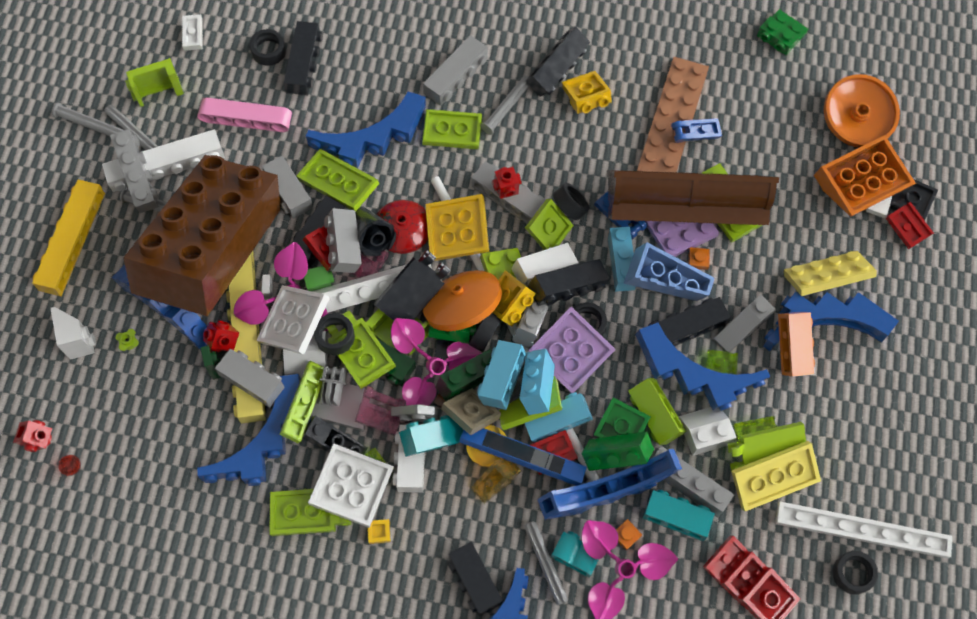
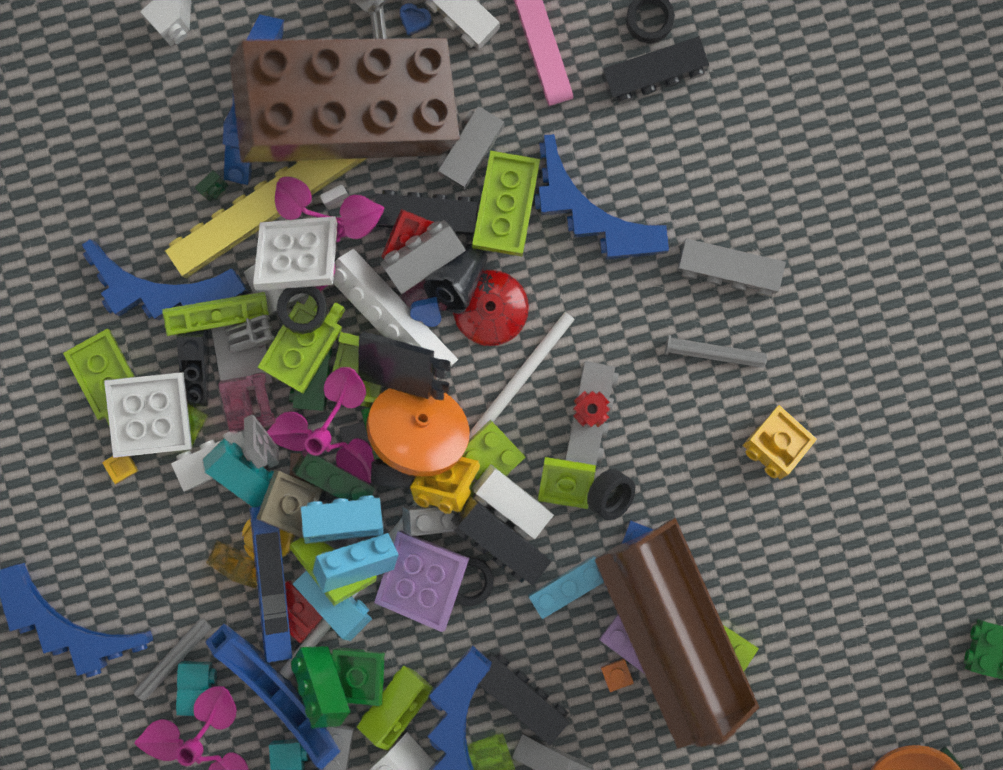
camera: 70 degrees right, 20 degrees up
(33, 435) = (42, 42): brick -> none
(69, 465) = (35, 98): clear red plate -> none
(127, 345) = (200, 82): lime plate -> none
(172, 185) = (414, 18): none -> blue tile
(220, 336) = (242, 182): red brick -> none
(250, 377) = (211, 241): light grey brick -> none
(318, 278) = (370, 249): bright green brick -> none
(382, 261) = (426, 311): none -> blue tile
(452, 129) = (648, 301): lime tile -> none
(457, 227) = (512, 376): yellow plate -> none
(474, 579) = (116, 593): black brick -> none
(558, 61) = (804, 388): black brick -> none
(627, 534) = (244, 732): orange plate -> none
(666, 274) = (560, 640): medium blue wedge -> none
(676, 103) = (796, 564): nougat plate -> none
(696, 130) = (788, 603): plate -> none

